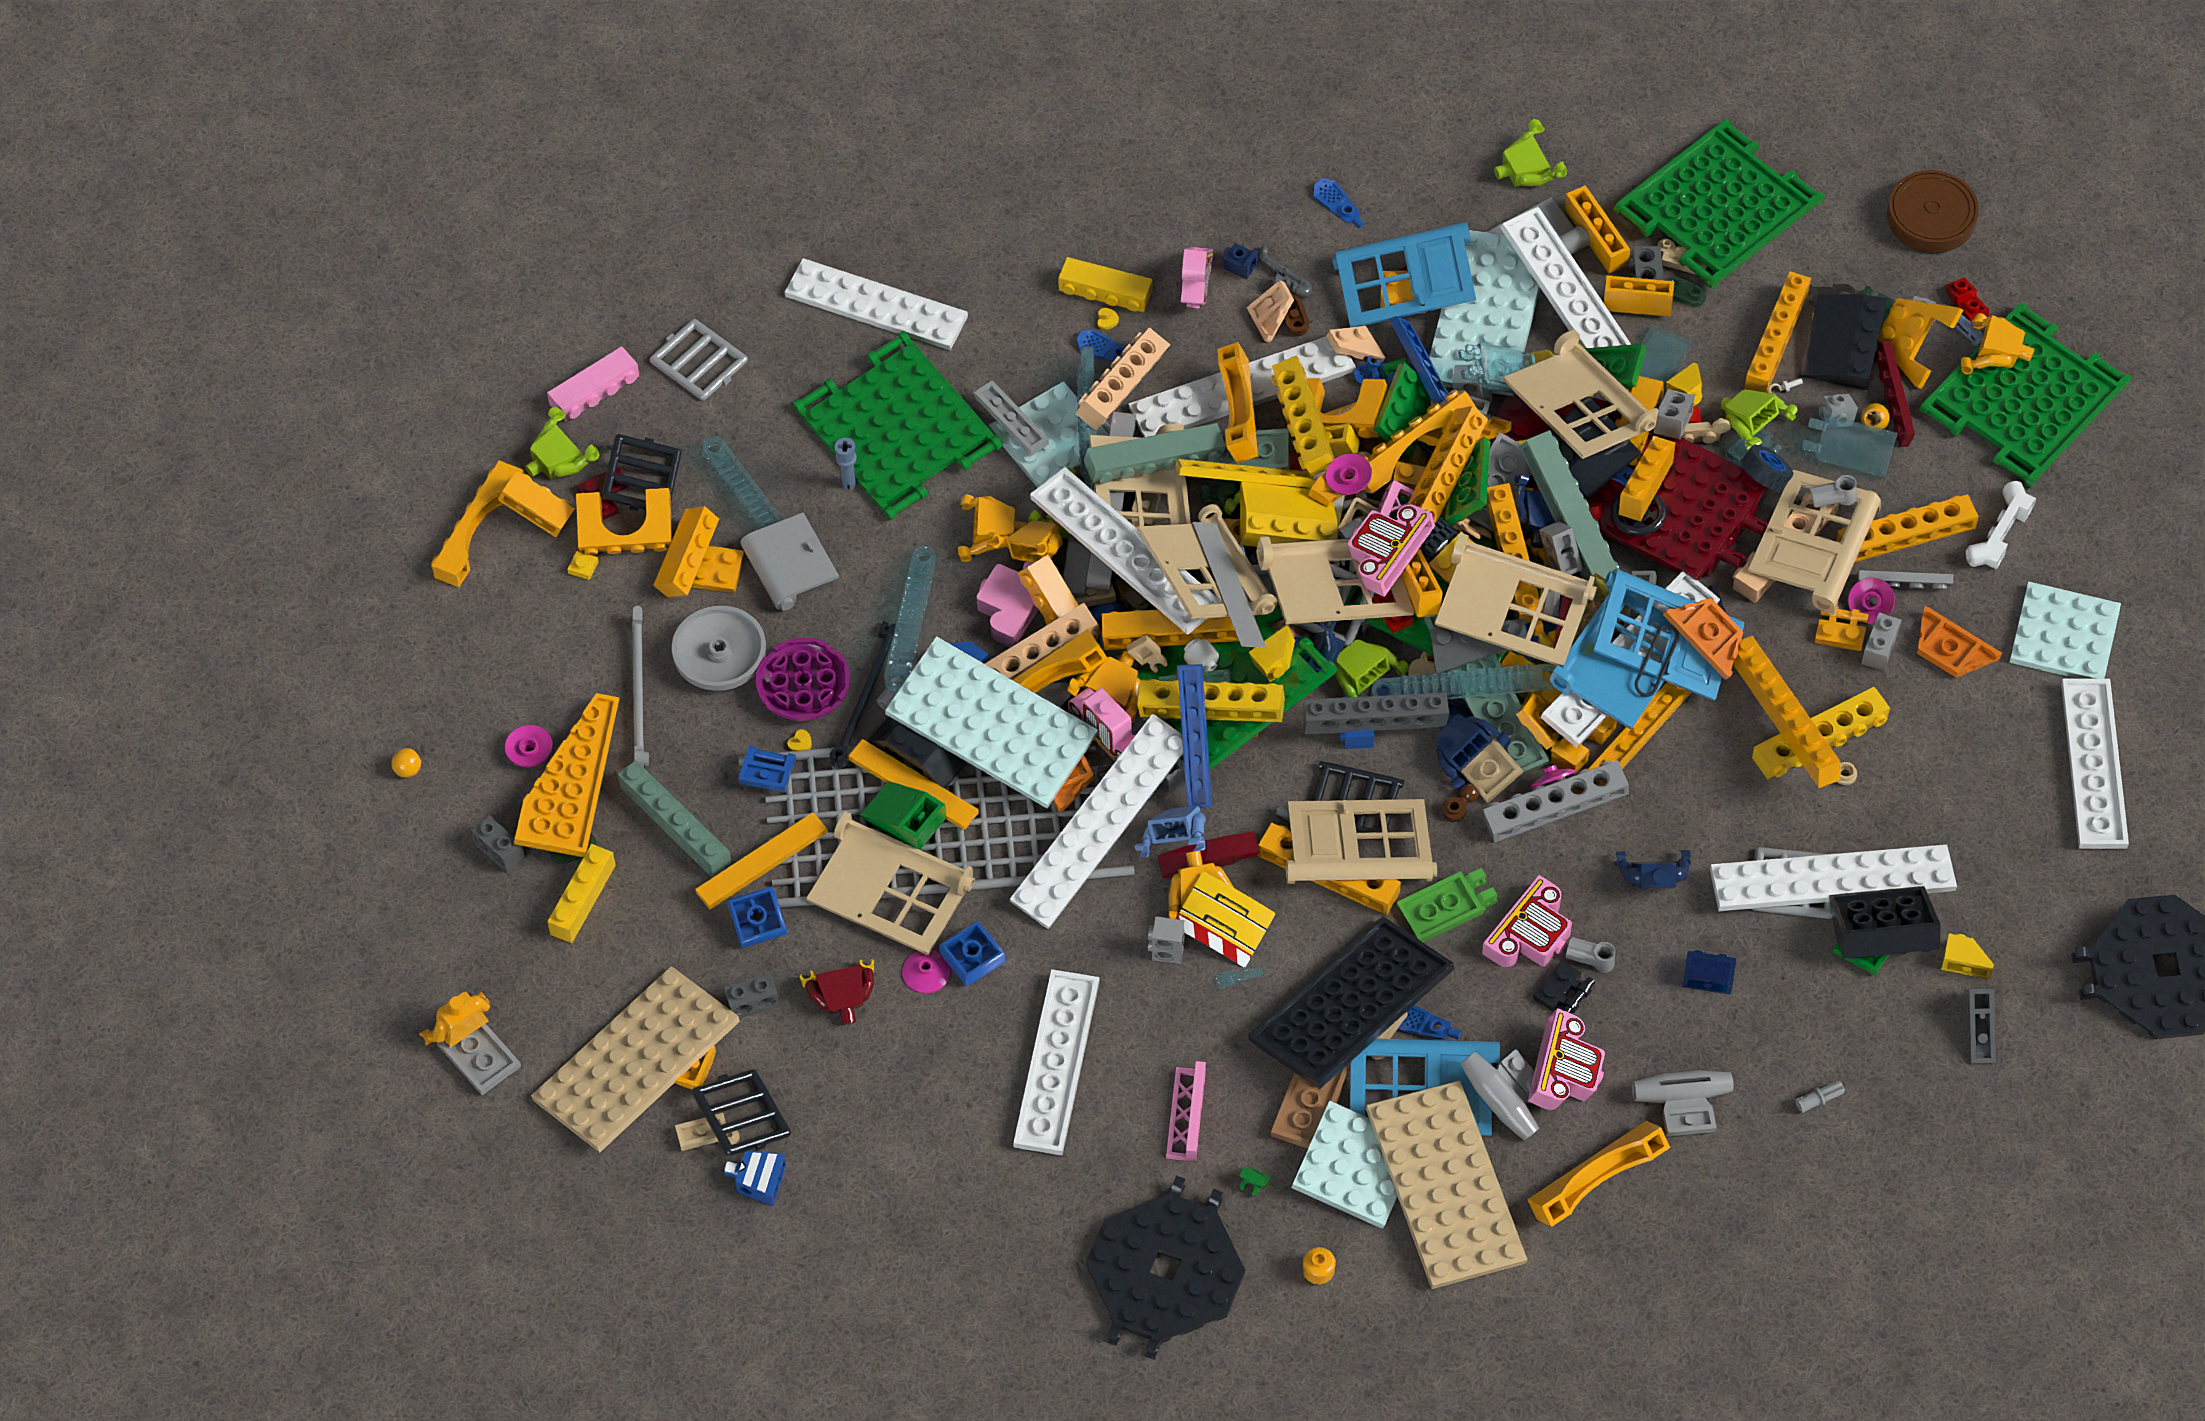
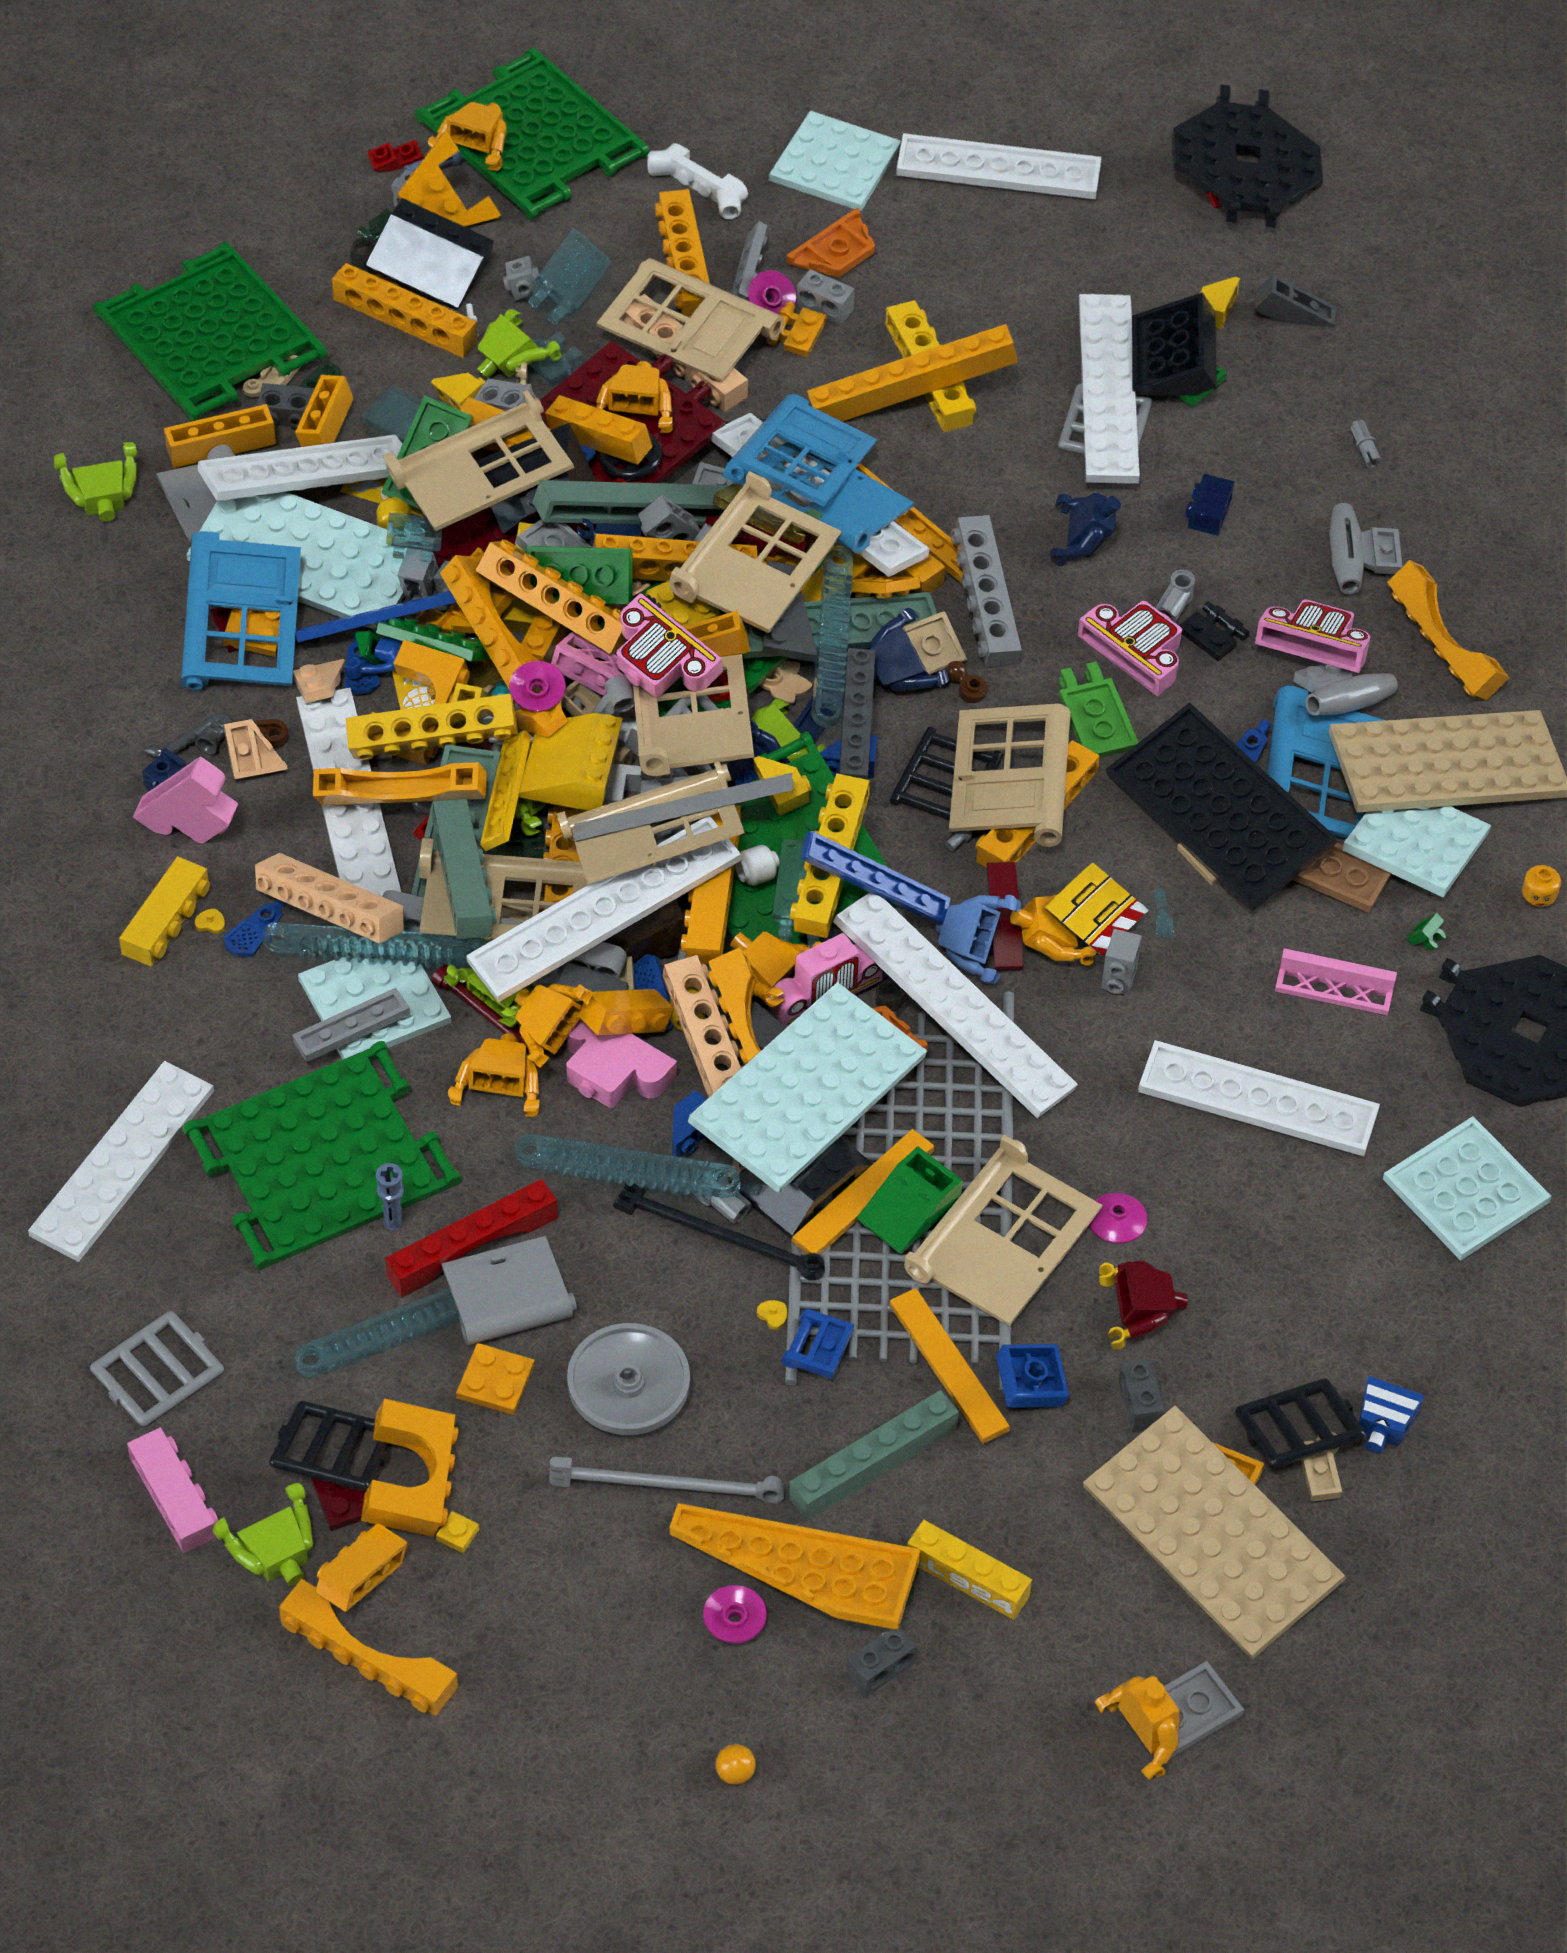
camera: 85 degrees left, 5 degrees down
(686, 552) = (474, 1400): light orange brick -> none
(802, 661) = (700, 1268): magenta brick -> none
(853, 548) = (516, 1213): none -> red arch
(974, 940) = (1121, 1165): blue brick -> none
(990, 1225) = (1466, 1188): none -> light aqua plate
(1145, 651) = (739, 917): tan plate -> none
(1339, 203) = (101, 670): blue piece -> none
(1552, 774) = (957, 589): dark pink dish -> none
(1665, 664) = (835, 468): black piece -> none
(1701, 501) = (638, 391): none -> light orange torso
(1708, 632) = (809, 413): orange wing -> none
(1767, 467) = (598, 335): black wheel -> none
(1842, 491) = (646, 284): light grey piece -> none
(1875, 414) = (538, 249): light orange piece -> none
(1894, 393) = (518, 230): dark red plate -> none
(1932, 211) = (274, 158): reddish brown brick -> none

